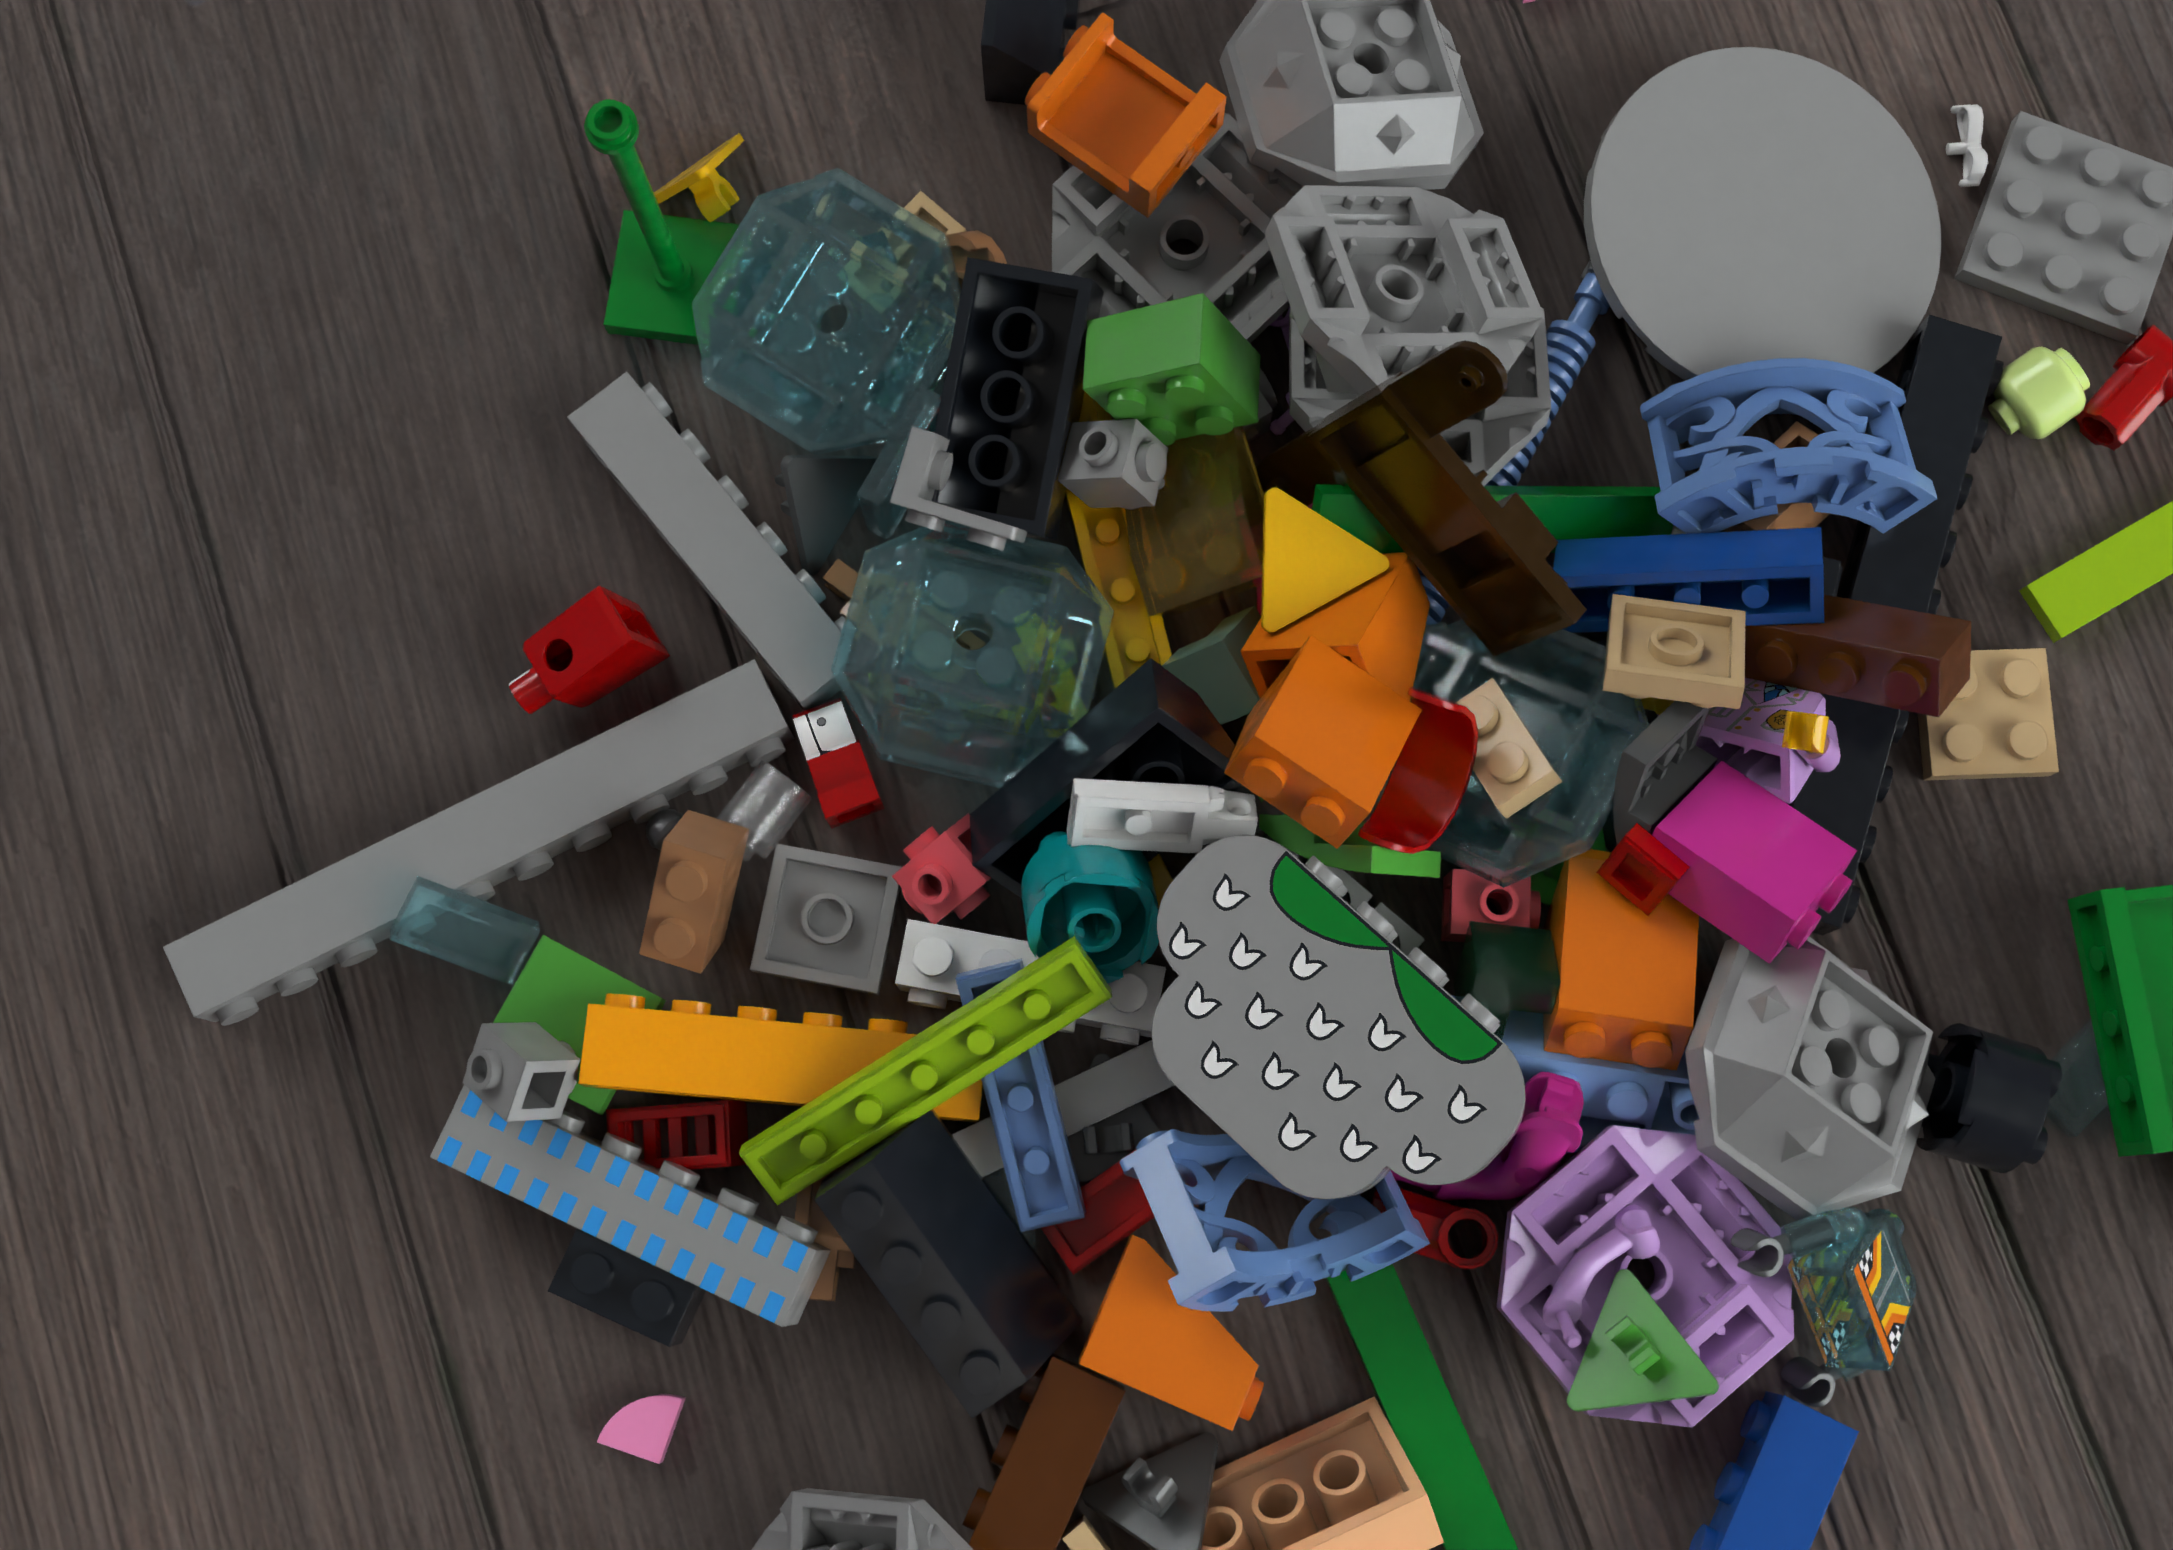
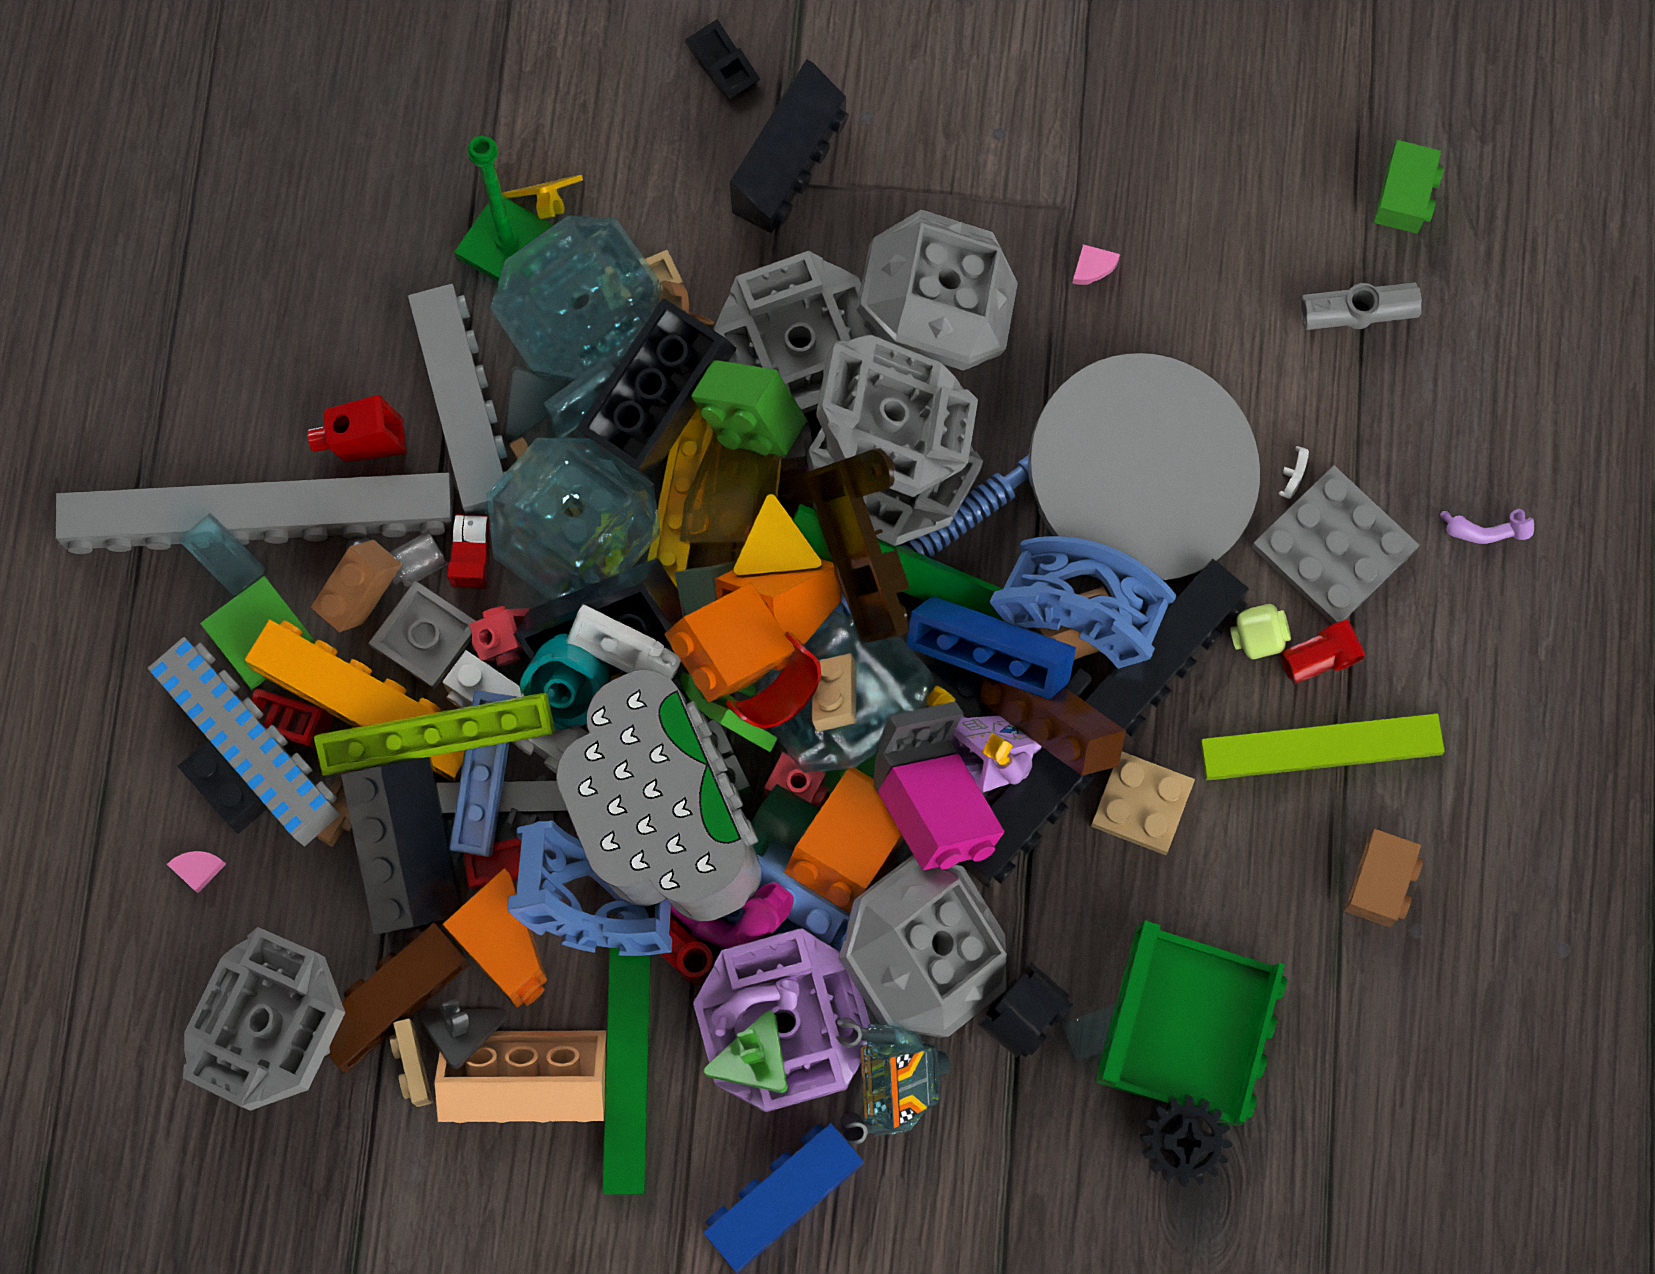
camera: 25 degrees right, 5 degrees down
(521, 1071) = (217, 641): light grey brick -> none
(928, 468) = (581, 407): light grey bracket -> none
(1113, 464) = (696, 446): light grey brick -> none
(1121, 116) = (790, 254): orange panel -> none
(1642, 869) = (878, 790): red tile -> none
(1675, 652) = (953, 678): tan plate -> none

